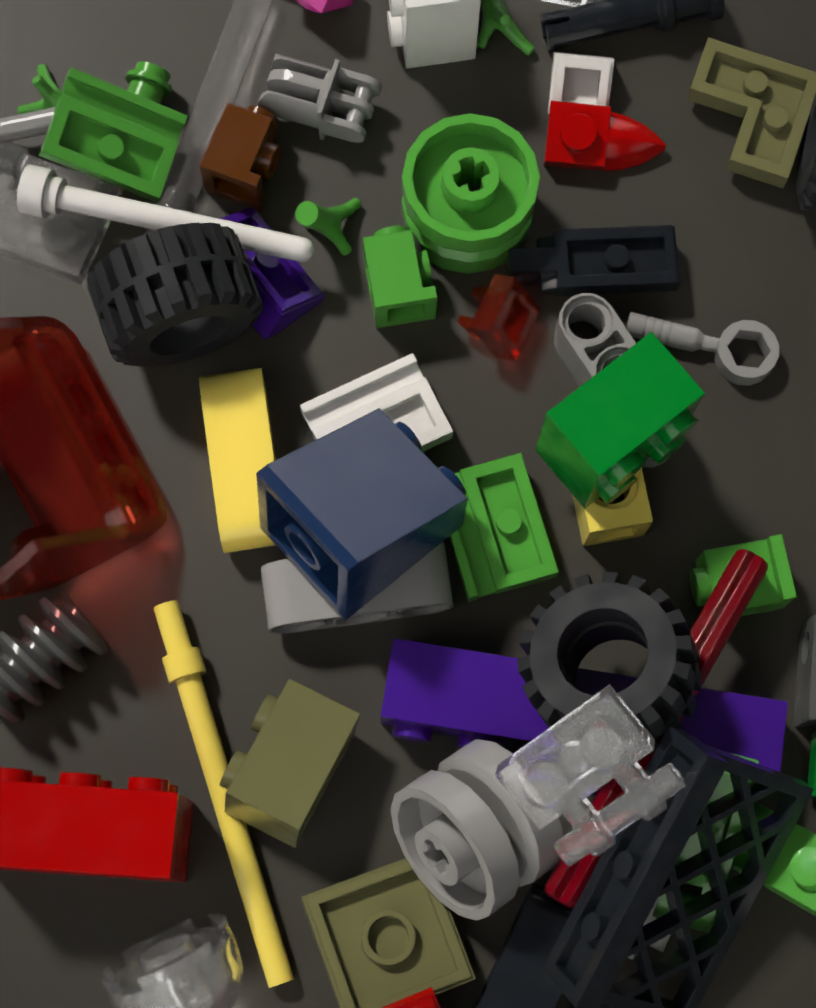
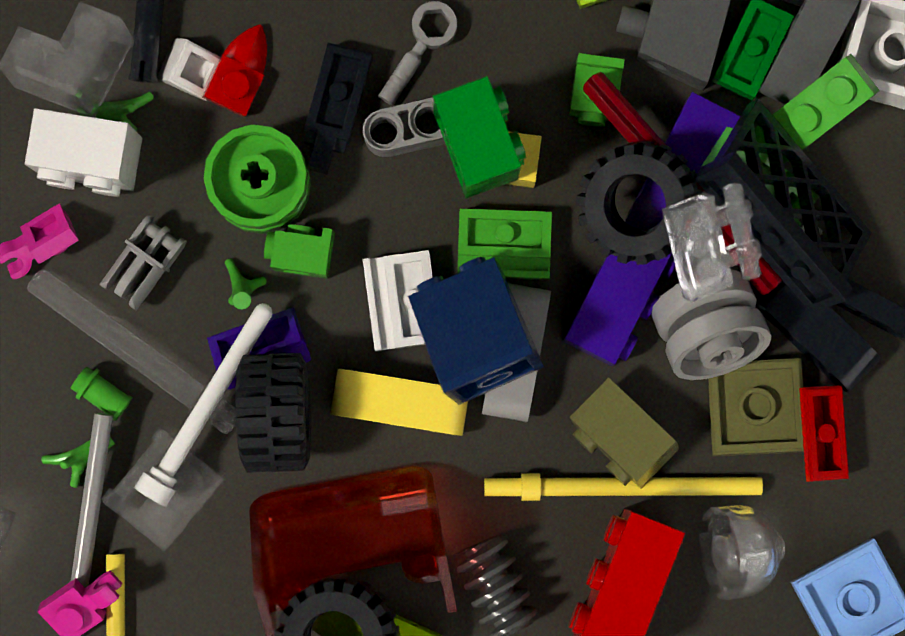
camera: 70 degrees left, 10 degrees up
(113, 135) = (130, 421): bright green plate -> none
(241, 155) = (169, 332): reddish brown brick -> none
(503, 317) = (356, 186): clear red tile -> none

